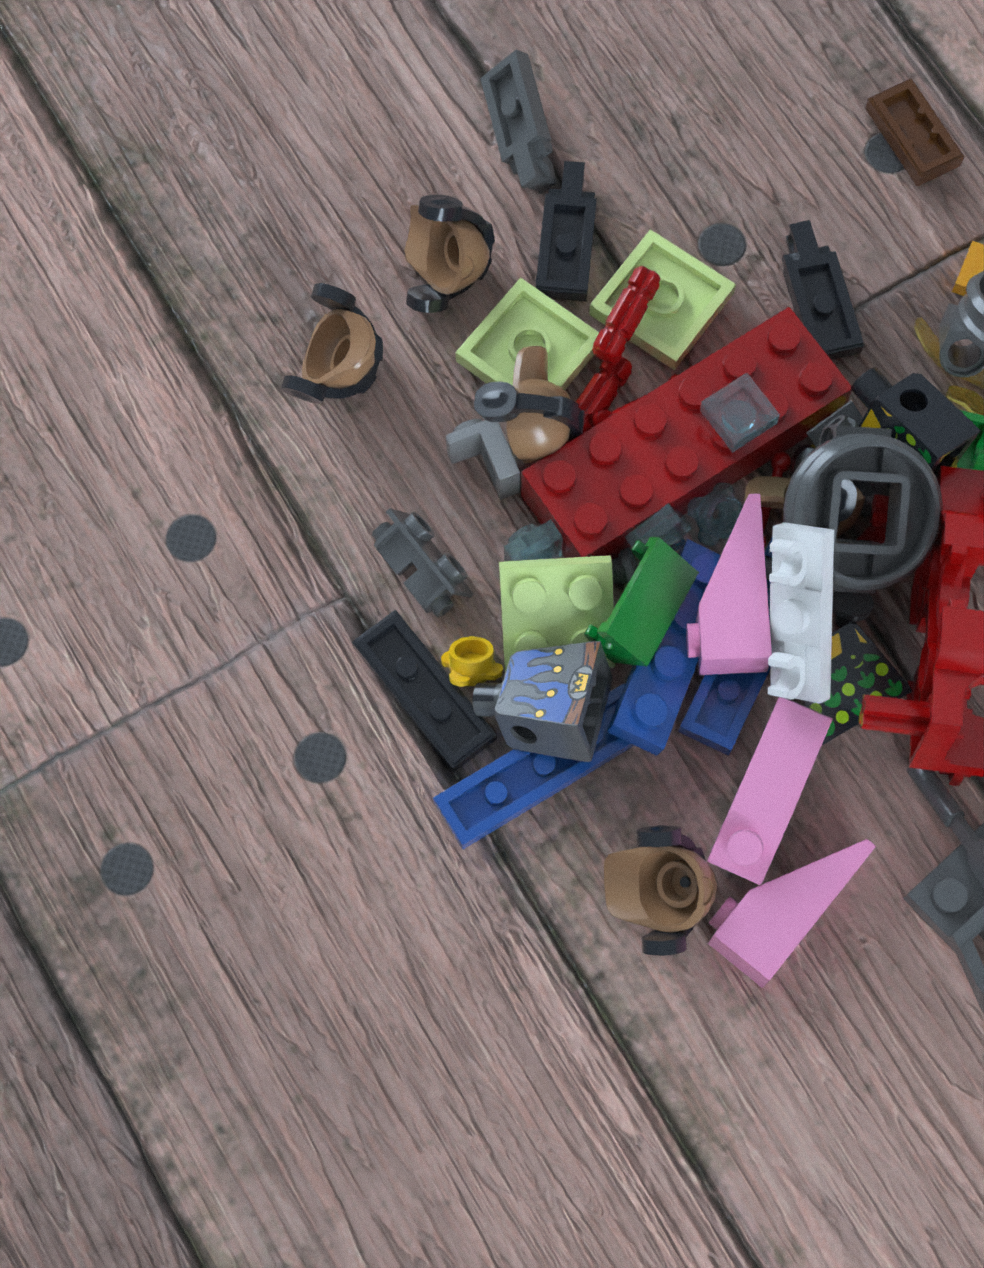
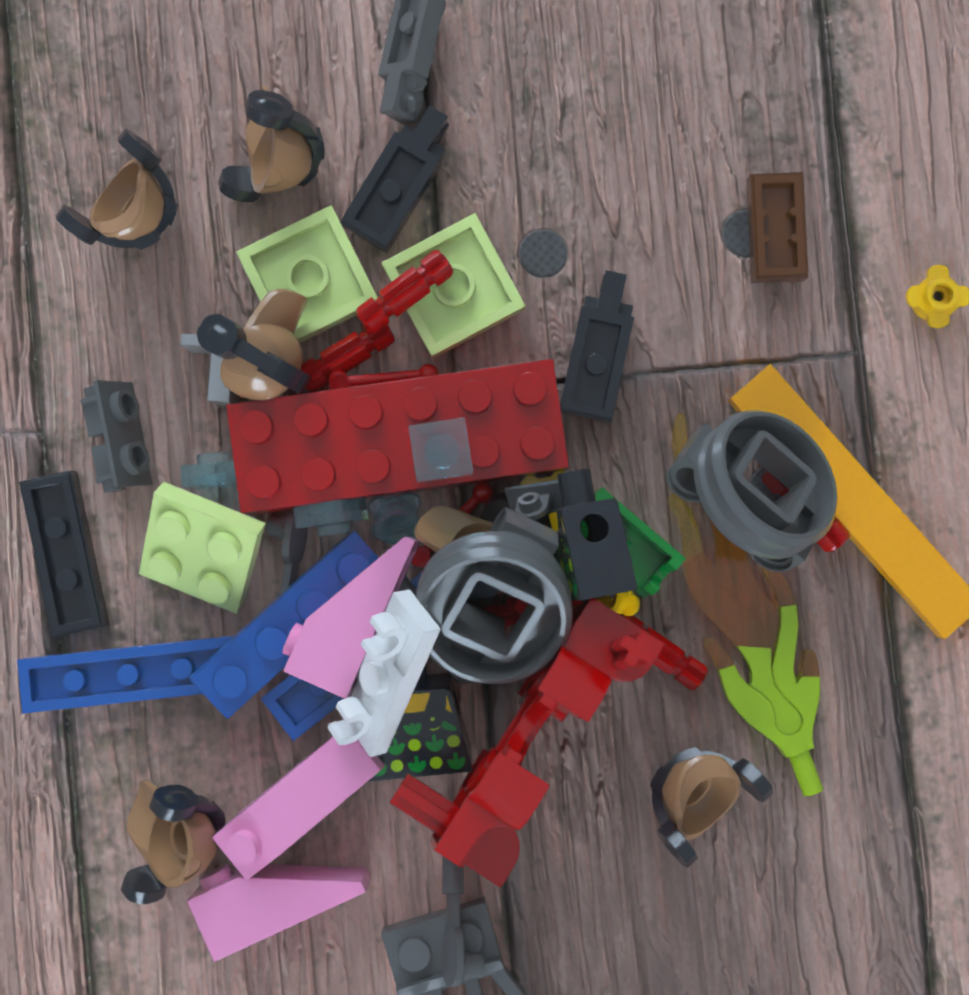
camera: 25 degrees right, 15 degrees up
(471, 662) = (112, 539): yellow plate -> none
(550, 700) = (153, 627): dark grey torso -> none
(645, 605) = (272, 586): green hinge -> none

